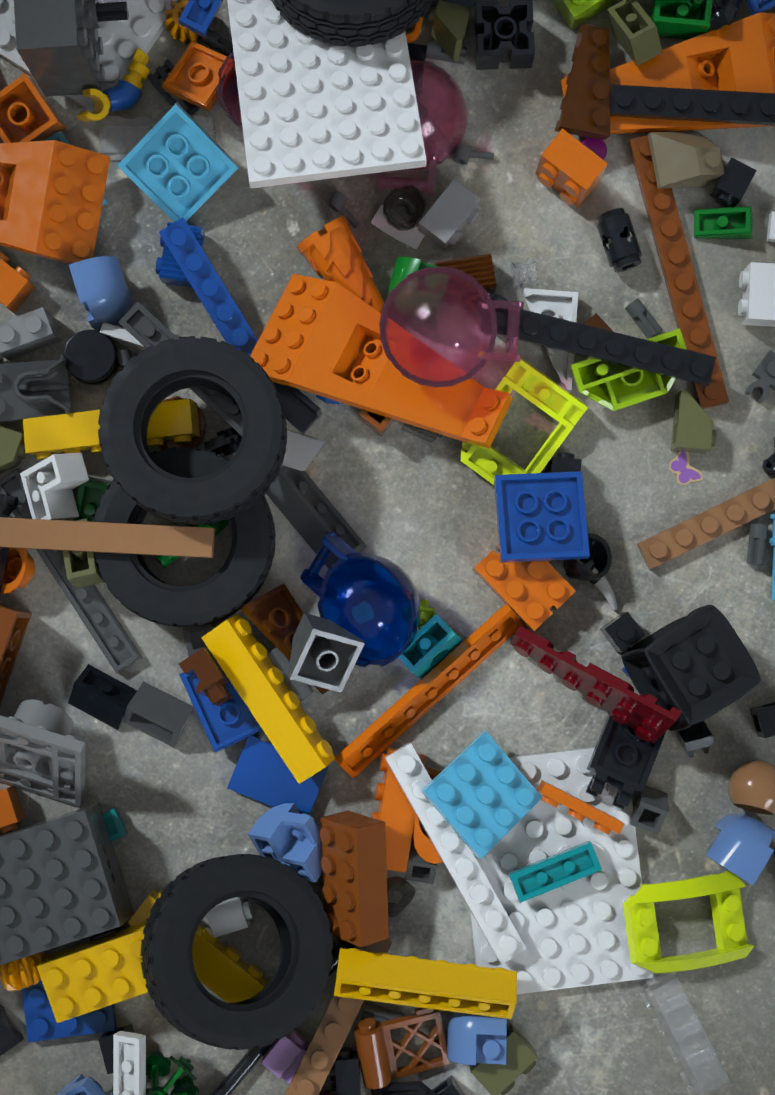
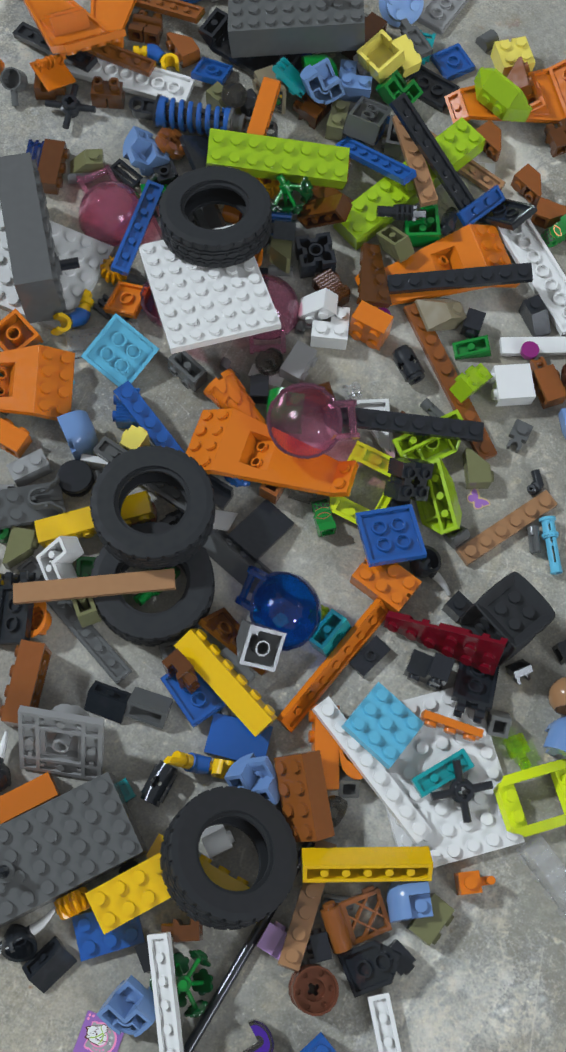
camera: 15 degrees left, 15 degrees down
(160, 1032) = (183, 932): none -> reddish brown hips
(171, 814) = (151, 791): none -> black piece
(184, 316) = (134, 438): none -> light yellow brick
(219, 805) = (199, 764): none -> yellow piece
(280, 208) = (188, 370): none -> dark grey brick
(353, 475) = (260, 530): none -> black tile
(383, 249) = (259, 388): none -> black brick
(448, 468) = (323, 518): none -> green leg
(482, 685) = (369, 656): none -> black plate
(494, 126) = (318, 305): none -> white brick
(512, 172) = (332, 333): none -> white brick
(521, 96) = (331, 281): none -> reddish brown brick
(566, 1021) = (471, 882): none -> orange brick
(567, 720) = (429, 669): none -> black brick
(584, 432) = (408, 479): none -> black brick
(586, 901) = (467, 794): none -> black bar
(624, 464) = (442, 508): none -> lime wedge
(641, 523) = (457, 537): none -> dark grey brick
(670, 847) = (517, 748): none -> clear neon green plate
(709, 285) = (470, 382): none -> lime brick

